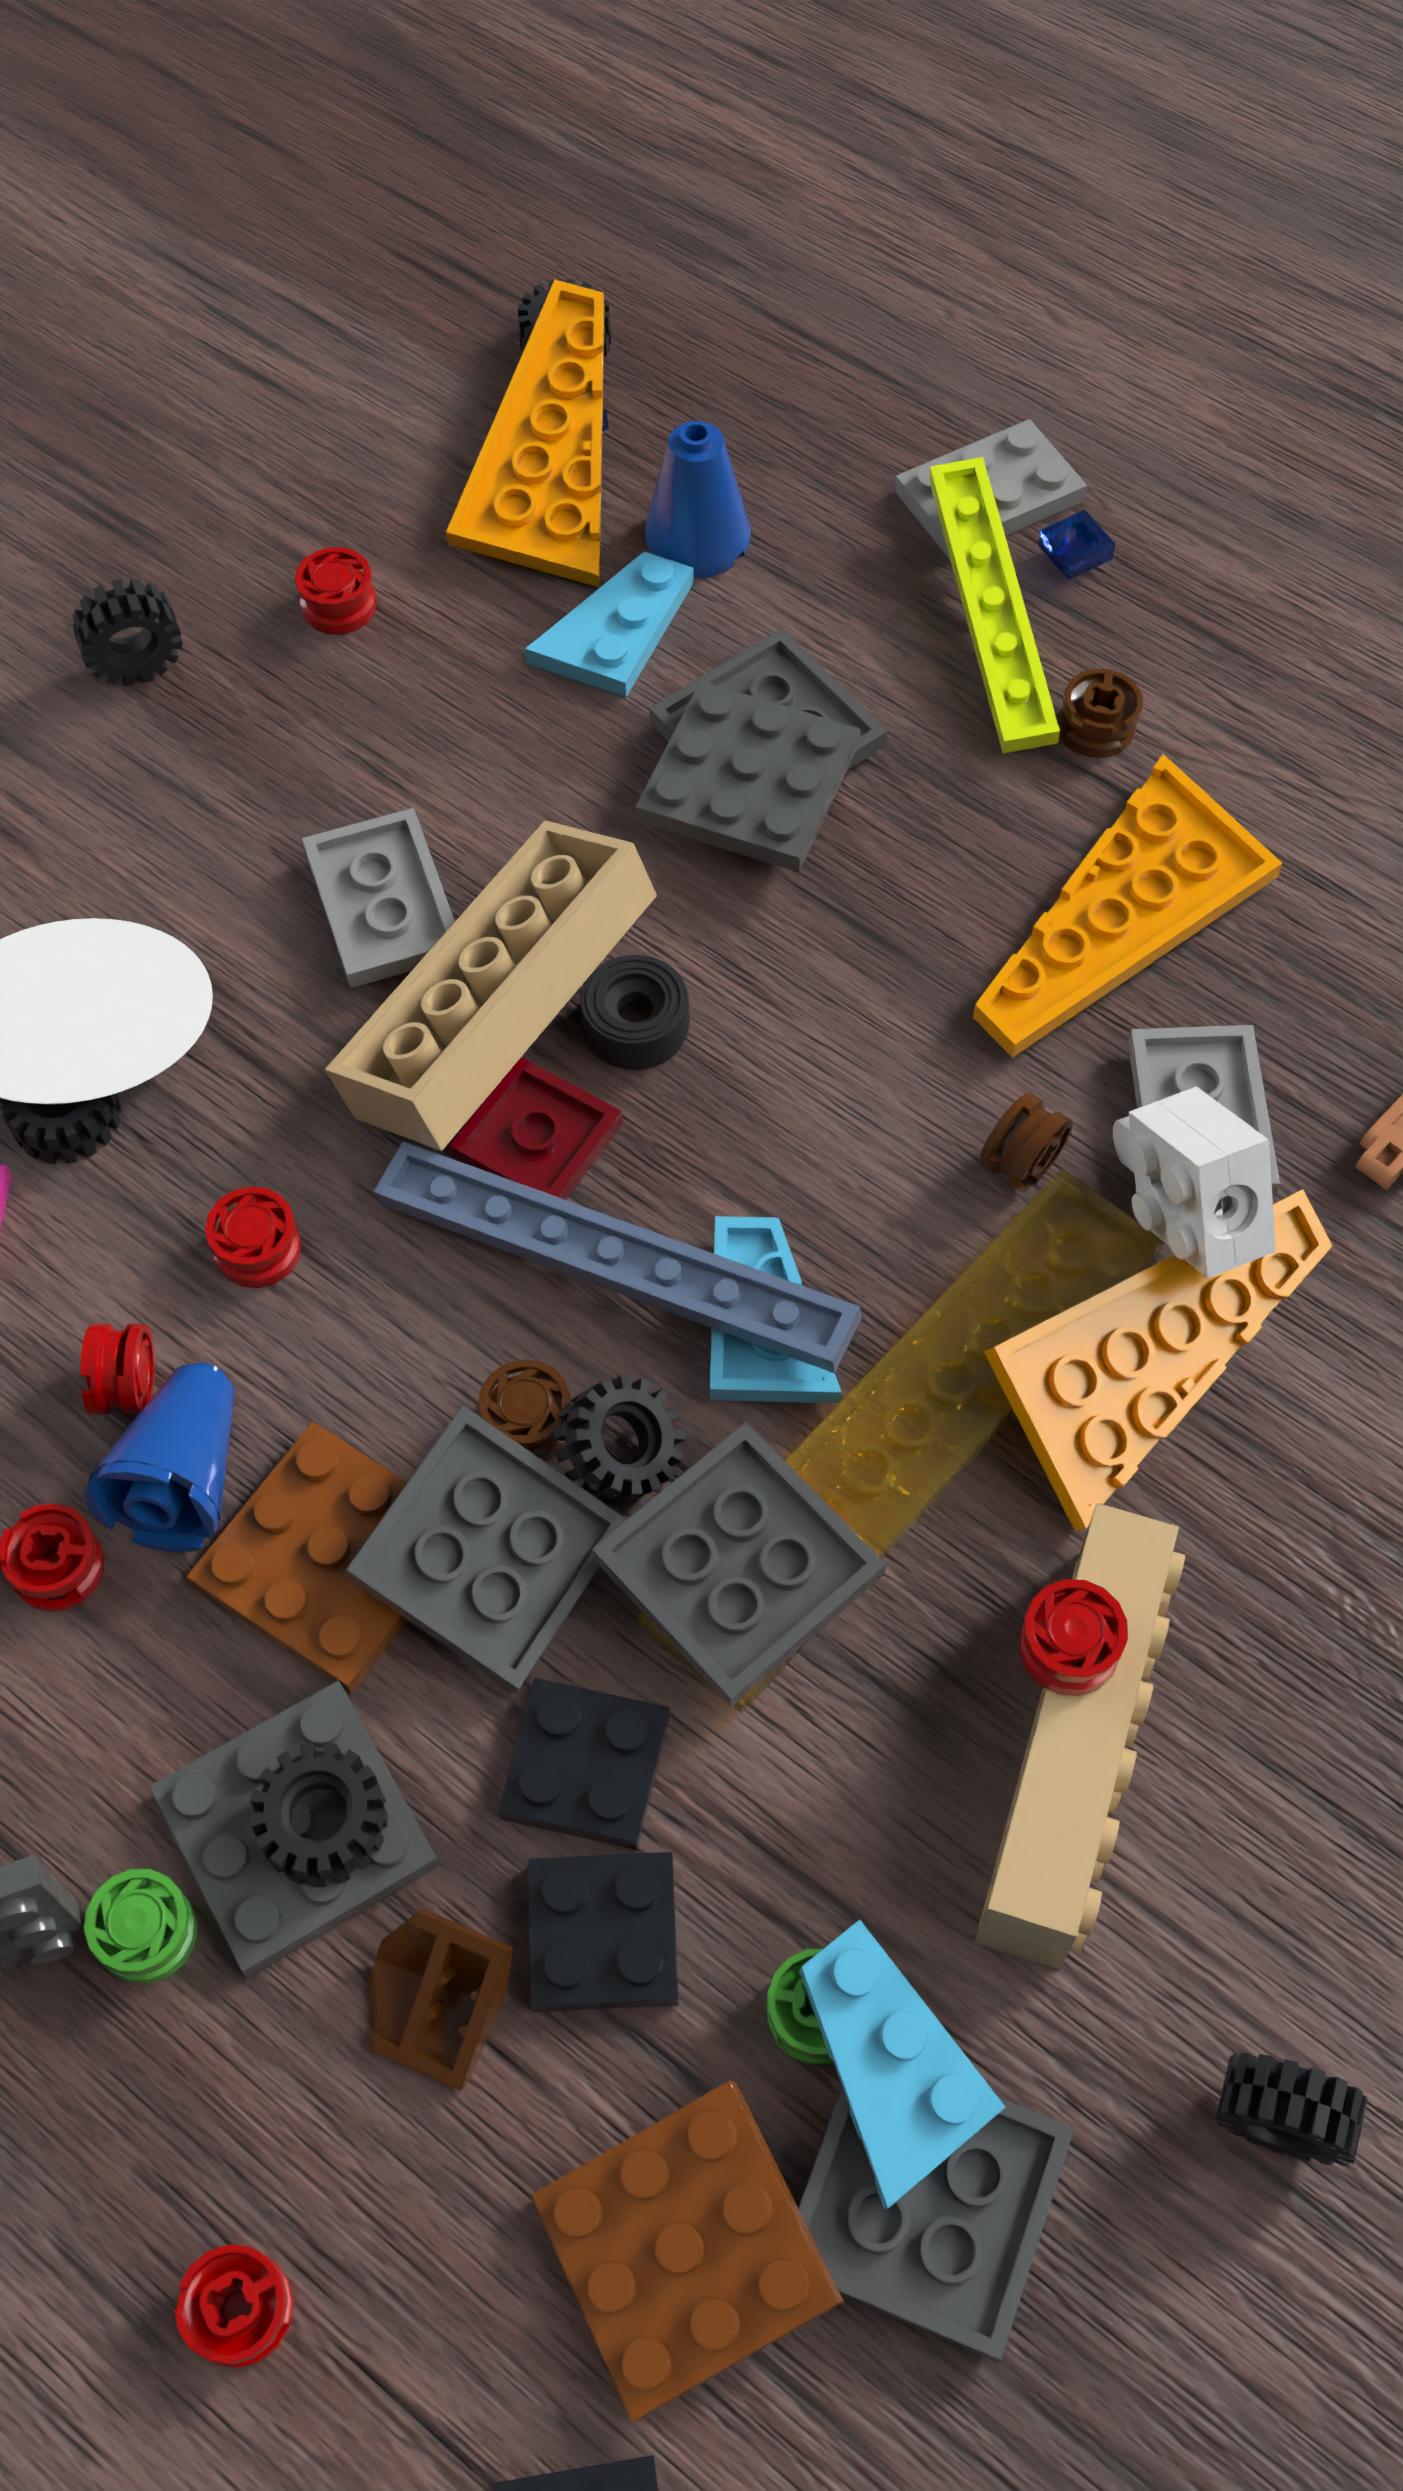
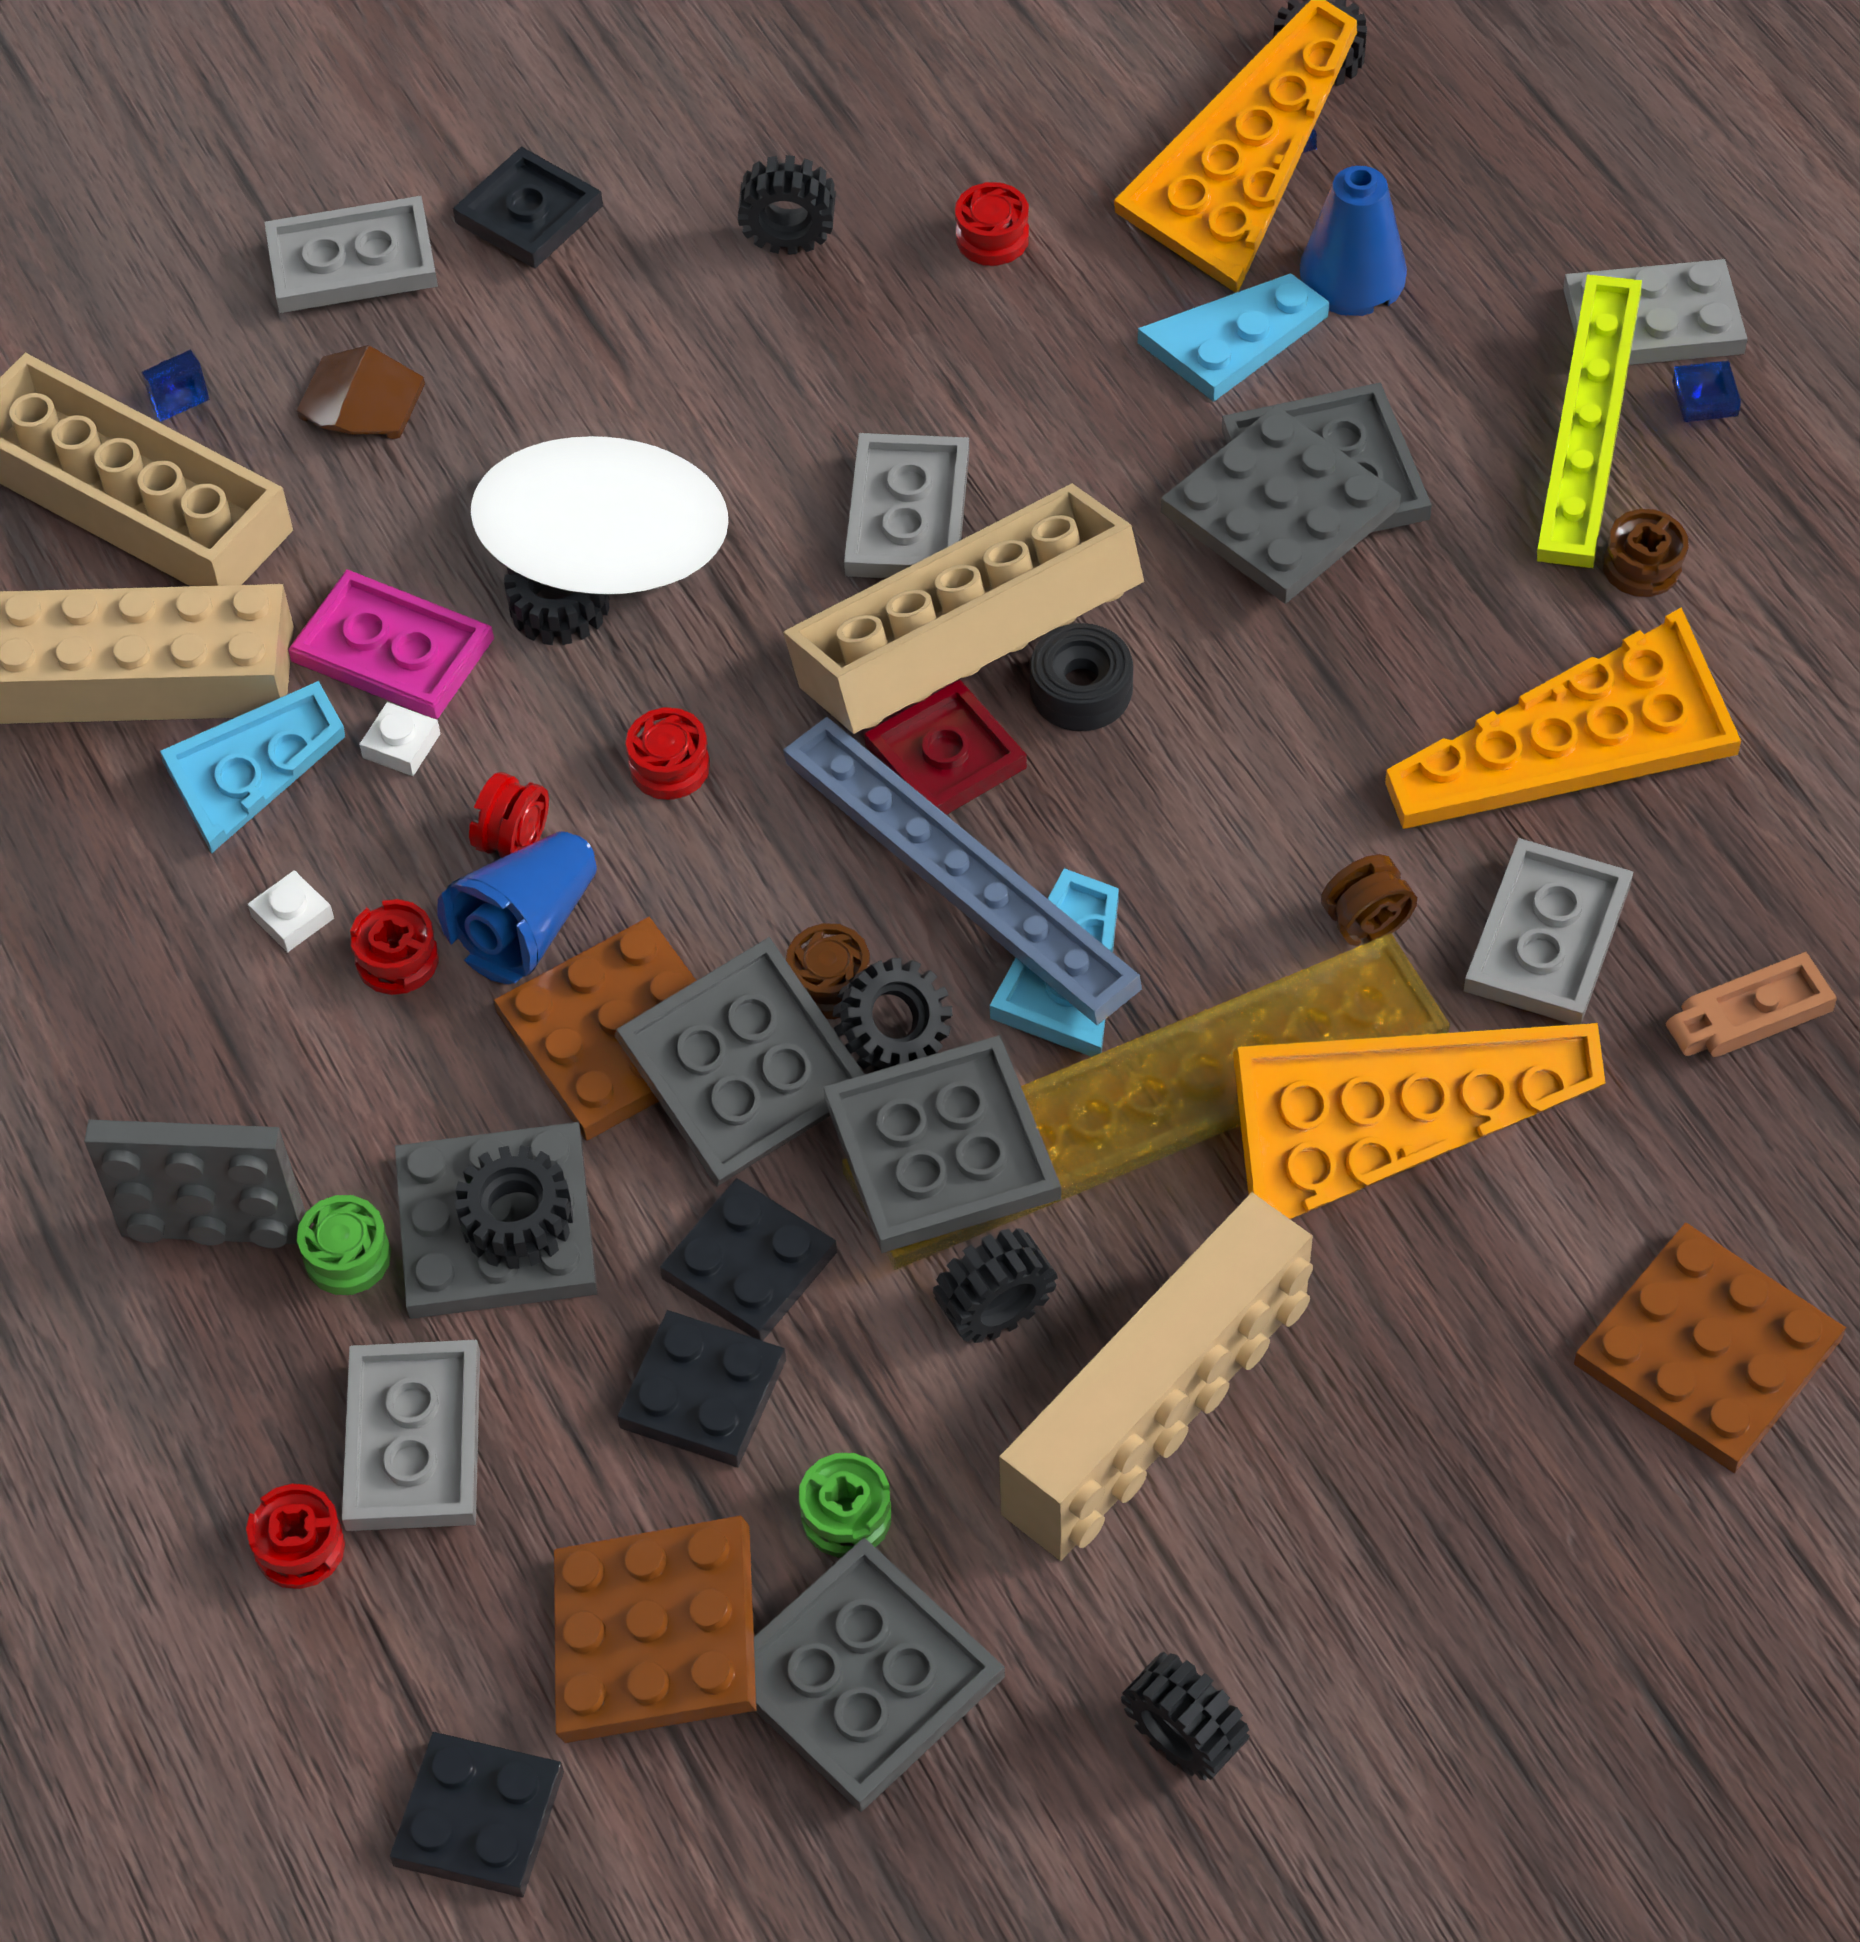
camera: 25 degrees right, 5 degrees down
(313, 2126) = (411, 1435): none -> light grey plate
(436, 1996) = (550, 1381): reddish brown slope -> none
(865, 1697) = (995, 1285): none -> black tyre
(898, 2065) = (880, 1557): medium azure wing -> none
(1073, 1637) = (1169, 1282): red wheel -> none
(1199, 1180) = (1485, 974): white brick -> none

